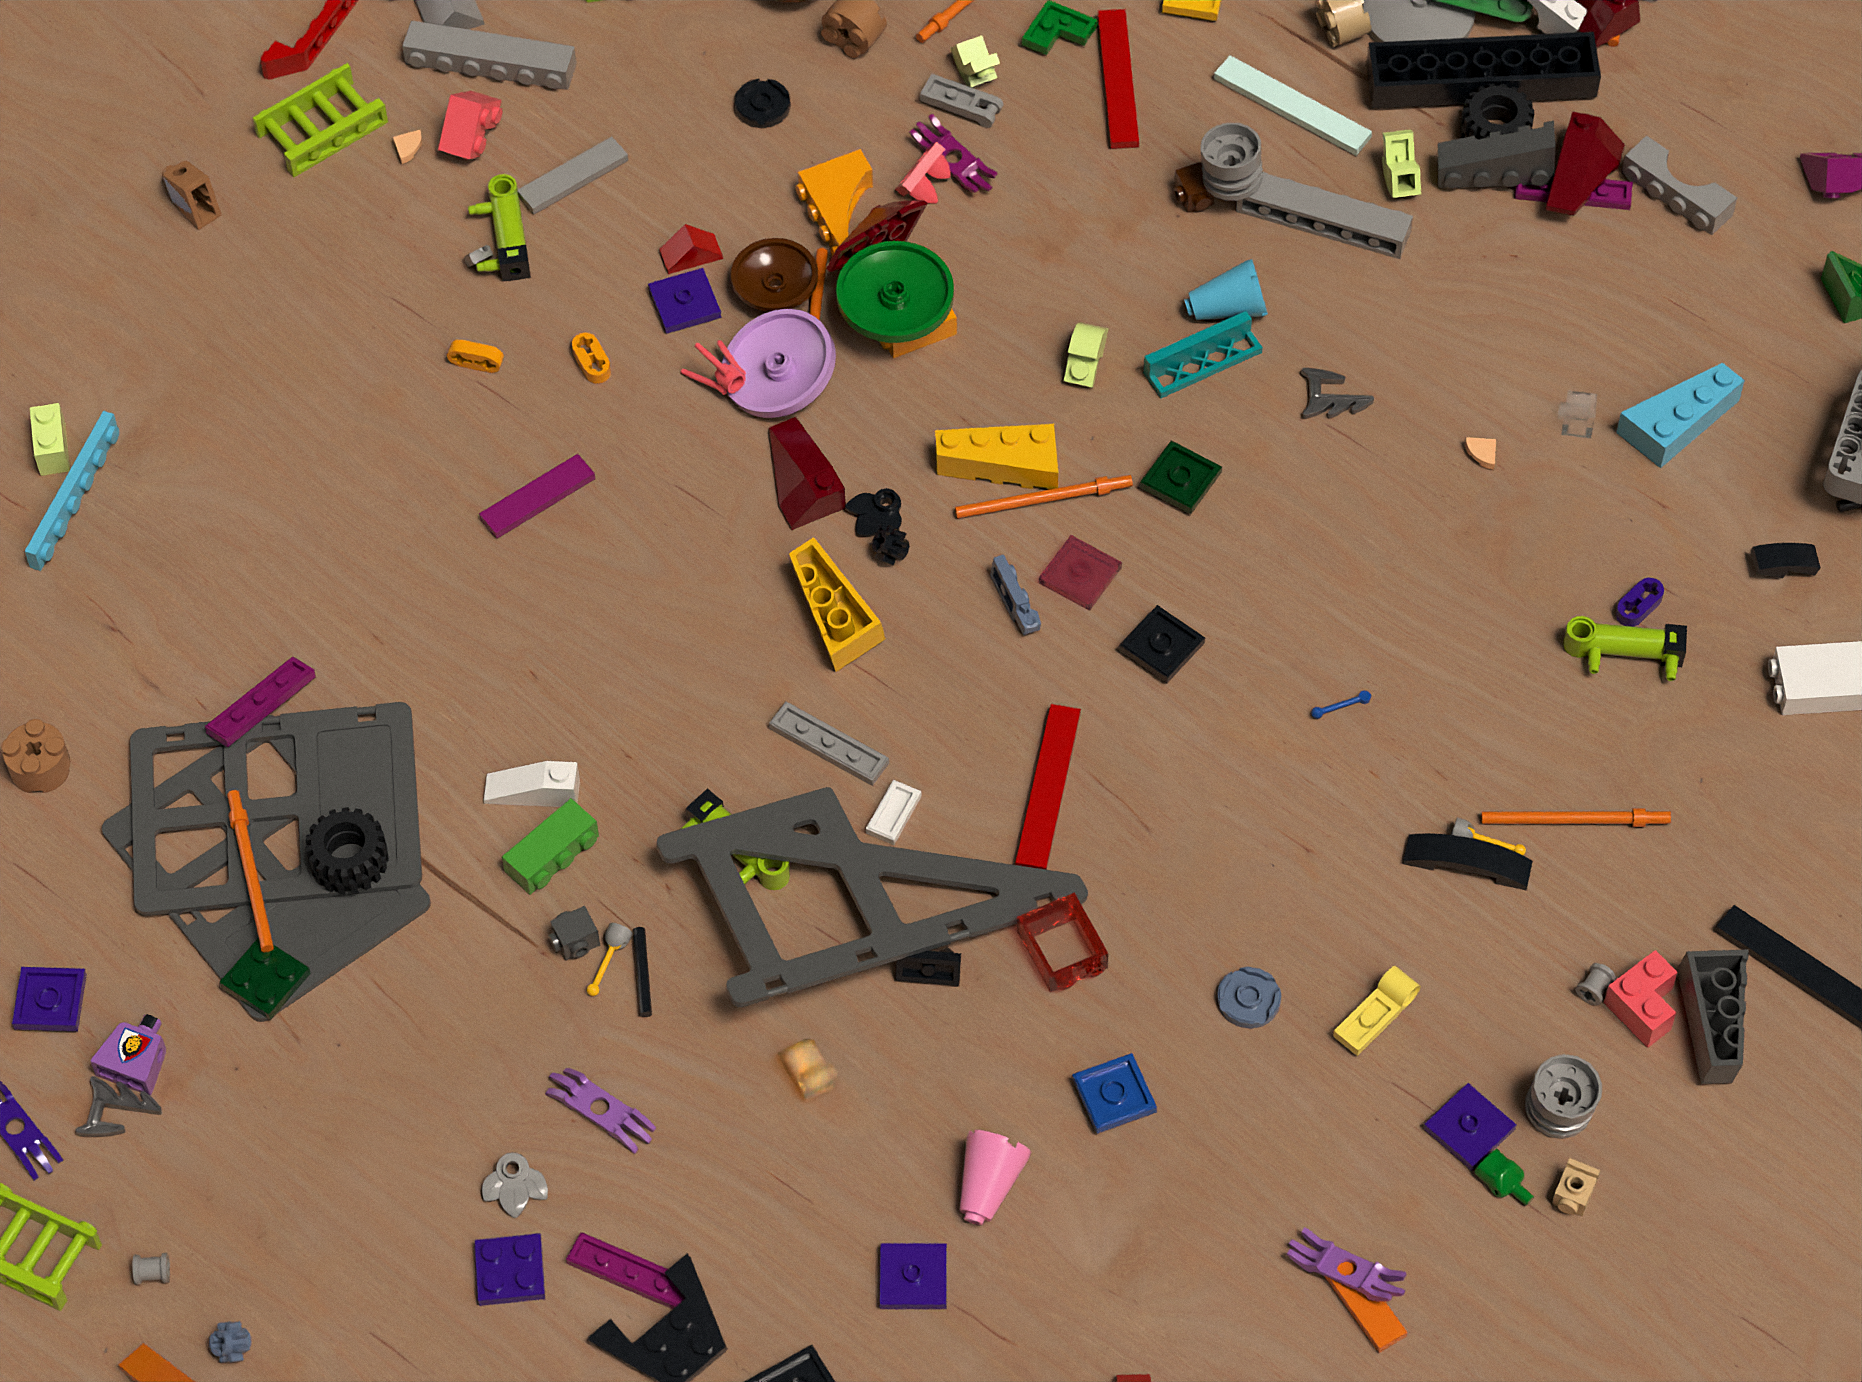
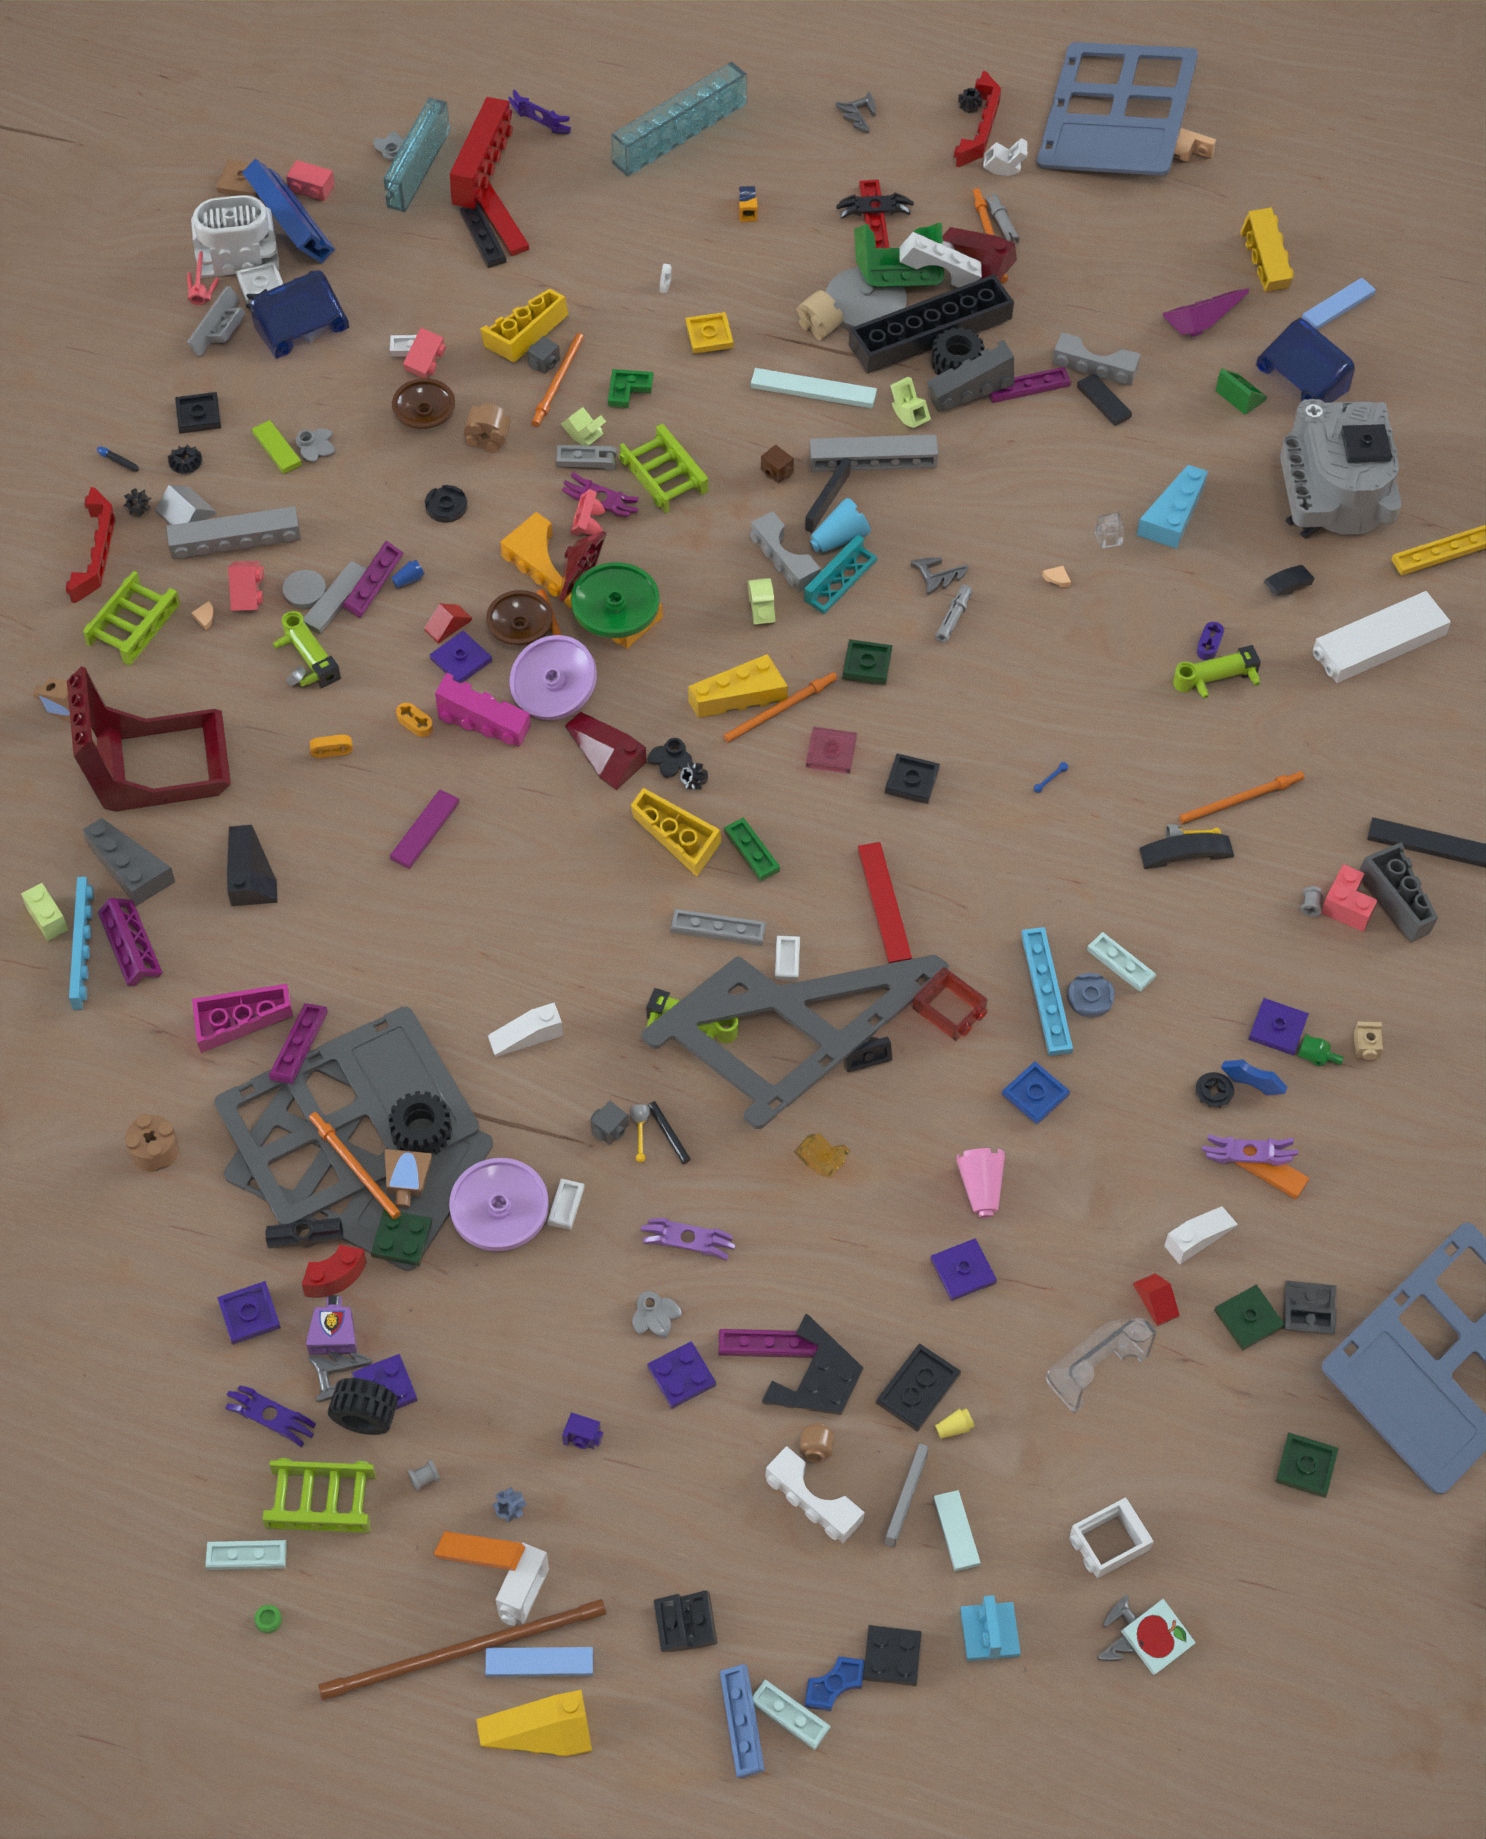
camera: 25 degrees left, 0 degrees up
(116, 1158) = (362, 1406): none -> black tyre
(124, 502) = (123, 940): none -> magenta fence
(140, 924) = (288, 1234): none -> black piece
(166, 990) = (334, 1273): none -> red brick
(170, 1134) = (392, 1375): none -> dark purple plate
(174, 420) = (128, 862): none -> dark grey wedge
(207, 641) = (239, 1013): none -> dark pink wedge
(228, 245) = (105, 764): none -> dark red window
(303, 905) = (406, 1175): none -> medium nougat torso
(306, 471) = (248, 870): none -> black wedge
(356, 1290) = (582, 1432): none -> dark purple brick
(394, 981) = (499, 1204): none -> lavender dish
(477, 1012) = (566, 1204): none -> white tile
(539, 151) = (303, 588): none -> light grey tile
(550, 846) = (561, 1069): bright green brick -> none
(626, 167) = (372, 579): none -> magenta tile
(670, 375) = (480, 712): none -> dark pink wedge
(671, 176) = (408, 574): none -> blue cone
(729, 376) = (522, 697): coral plant -> none
(917, 661) = (752, 849): none -> green plate
(1013, 597) = (795, 781): sand blue hinge -> none
(1070, 131) = (675, 453): none -> lime fence
(1118, 79) = (686, 408): red tile -> none
(1141, 274) = (798, 569): none -> light grey arch
(1193, 972) = (1046, 991): none -> medium azure plate
(1229, 1346) = (1198, 1233): none -> white slope
(1231, 161) = (801, 436): light grey wheel -> none
(1238, 248) = (827, 495): none -> black tile
(1309, 970) = (1121, 962): none -> light aqua tile
(1331, 446) = (957, 607): none -> light grey pin
(1342, 1162) = (1207, 1082): none -> black gear
(1377, 1011) = (1181, 972): light yellow plate -> none
(1407, 1184) = (1245, 1073): none -> blue tile
(1567, 1080) = (1333, 982): light grey wheel -> none
(1584, 162) = (1030, 363): dark red wedge -> none
(1664, 242) = (1104, 399): none -> black tile

